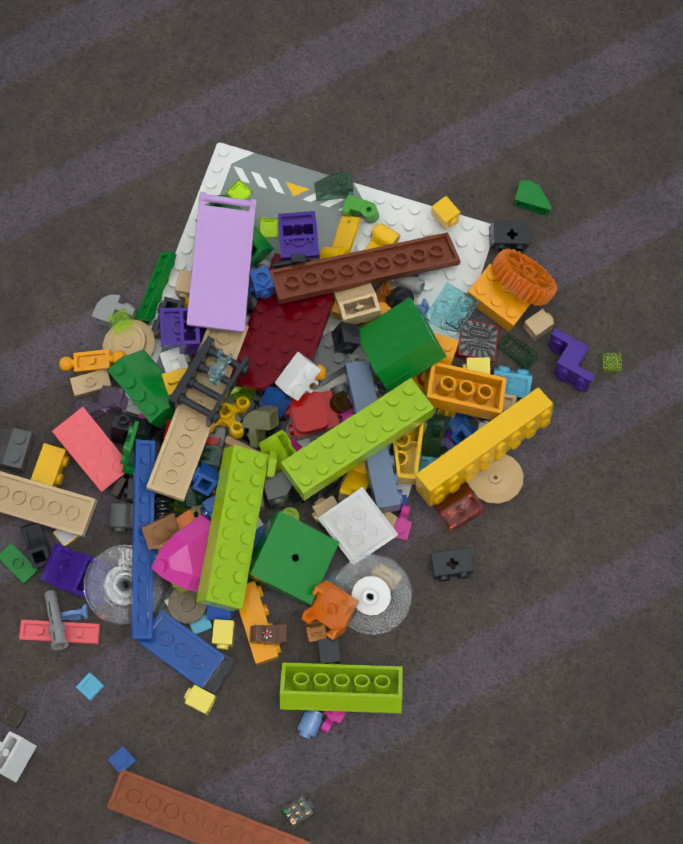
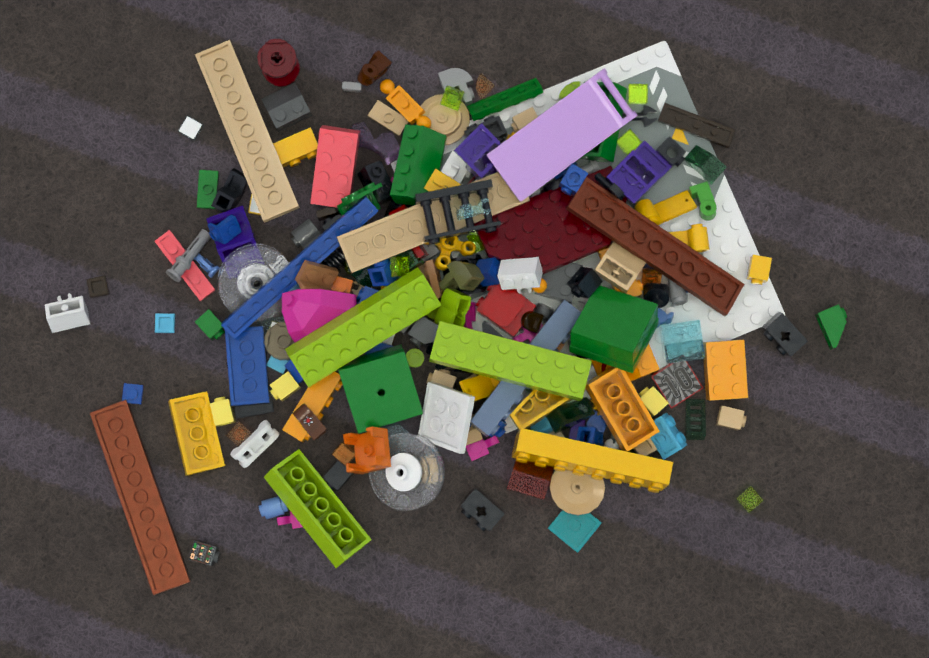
camera: 50 degrees right, 10 degrees up
(42, 388) = (352, 86): none -> light grey tile
(44, 360) = (374, 69): none -> reddish brown leg
(62, 572) = (225, 230): none -> blue bracket
(124, 650) = (210, 325): none -> green brick
(132, 294) = (483, 86): none -> clear orange tile
(191, 233) = (568, 89): none -> lime tile
(198, 736) = (196, 433): none -> yellow slope
(211, 462) = (399, 266): none -> clear neon green plate
(229, 702) = (238, 434): none -> clear orange plate
(248, 695) = (255, 444): none -> white plate
(263, 202) = (641, 116): none -> black bar
(272, 464) = (437, 312): lime tile -> none
(299, 197) = (669, 144): none -> black brick
(300, 171) = (696, 125): none -> dark brown tile
(524, 277) = (755, 376): orange gear -> none
(524, 508) = (574, 529): none -> teal tile
(568, 365) = (719, 467): dark purple bracket -> none

